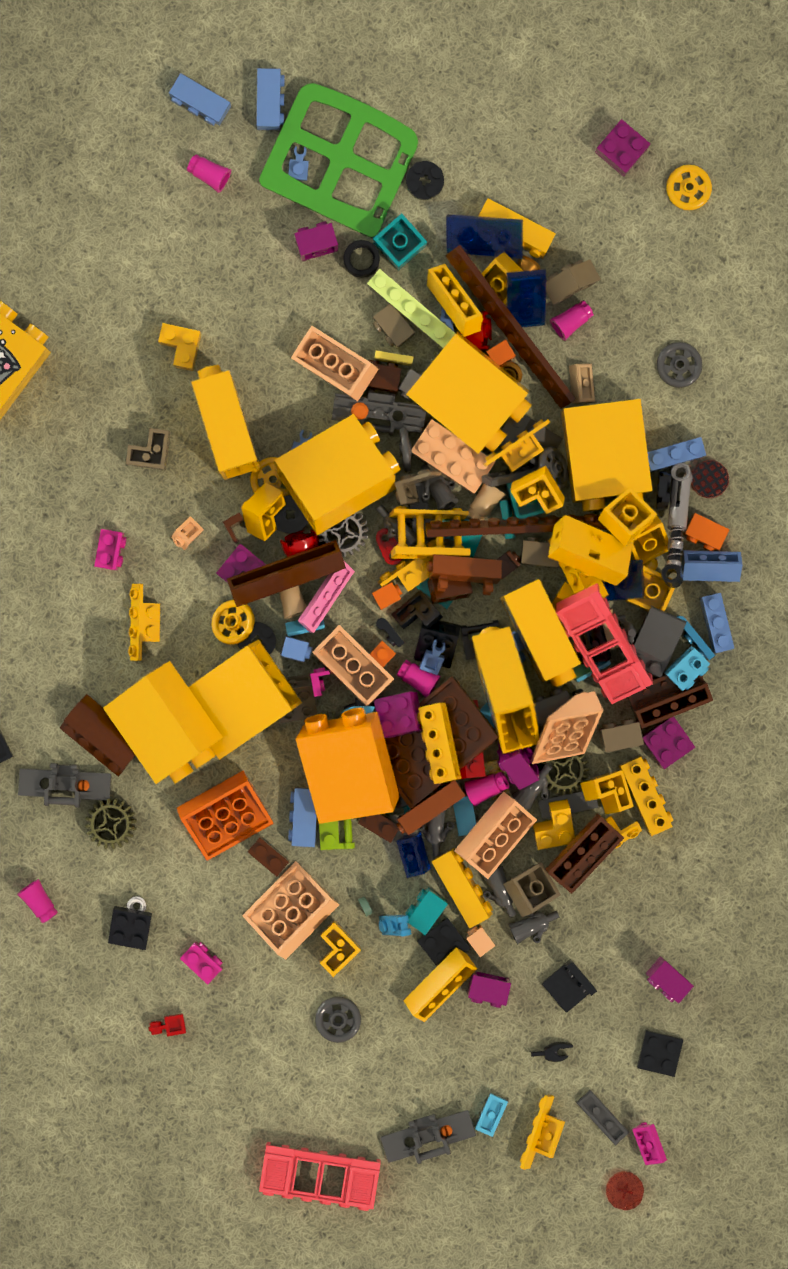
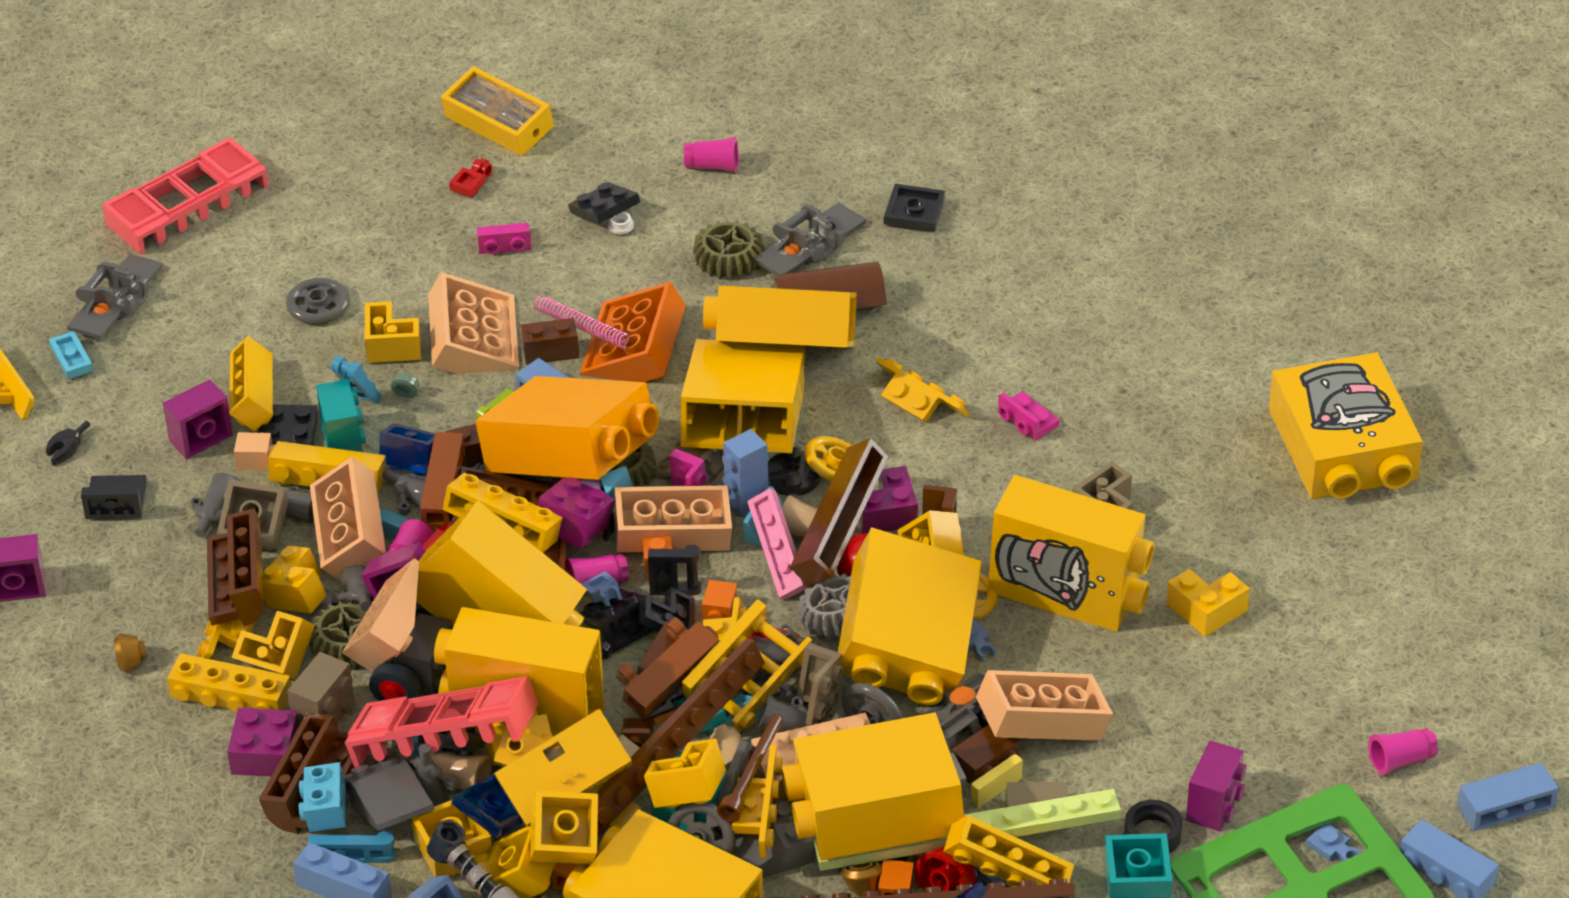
camera: 135 degrees right, 45 degrees down
(104, 1060) = (497, 111): none -> yellow brick
(186, 533) = (978, 483): light nougat bracket -> none
(241, 851) = (582, 326): none -> bright pink piece
(536, 456) = (732, 805): none -> reddish brown piece
(666, 869) = (128, 651): none -> pearl gold cone

